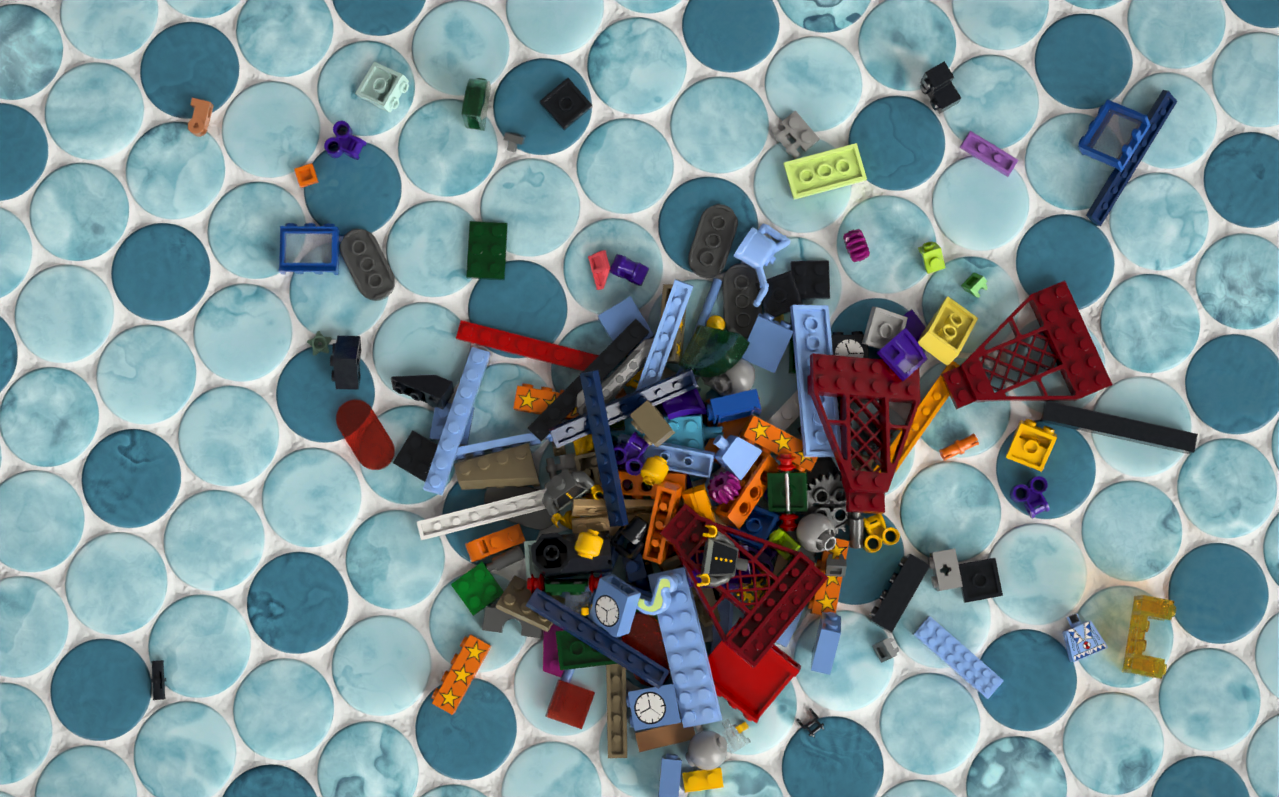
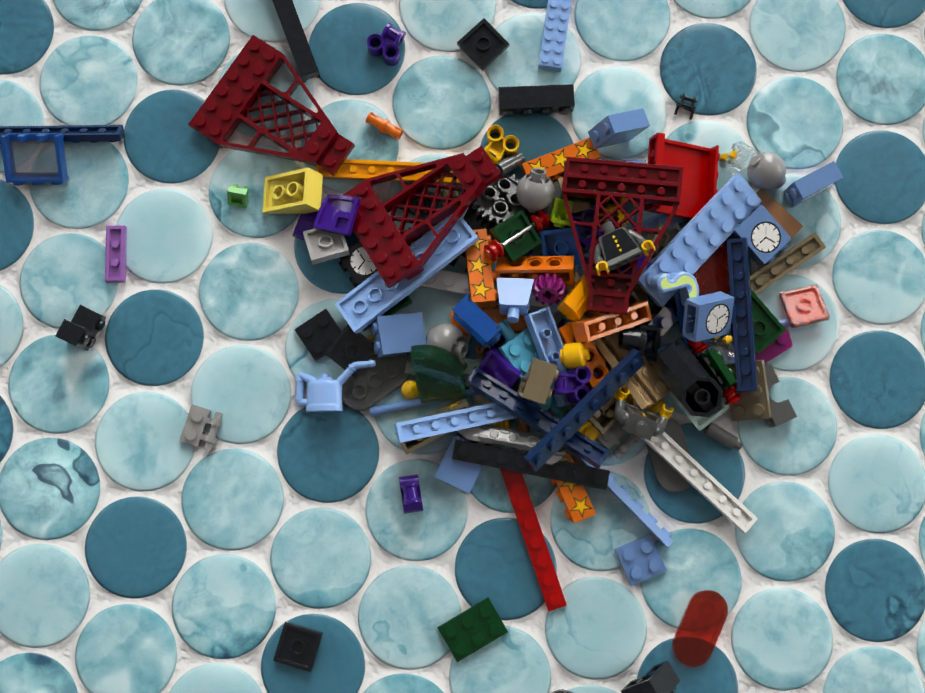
camera: 125 degrees left, 0 degrees up
(416, 455) = (687, 568): black plate -> none
(425, 388) = (626, 598): black slope -> none
(456, 421) = (639, 555): light blue plate -> none
(461, 674) = (842, 410): orange brick -> none
(477, 588) = (762, 444): green plate -> none
(495, 543) = (716, 455): orange plate -> none
(498, 469) = (654, 490): dark tan wedge -> none
(514, 139) = (359, 671): dark grey tile -> none
(588, 544) = (676, 368): yellow head -> none
(600, 268) = (425, 519): coral tile -> none
(702, 780) = (794, 166): yellow plate -> none
(713, 241) = (339, 438): dark grey tile -> none
(825, 171) = (217, 381): yellowish green plate -> none
(835, 567) = (551, 158): dark grey tile -> none
(856, 245) = (266, 313): magenta gear -> none
(885, 649) = (589, 83): dark grey tile -> none
(932, 257) = (236, 245): lime bracket -> none
(949, 560) = (498, 66): light grey brick -> none
(1031, 444) = (344, 69): yellow plate -> none

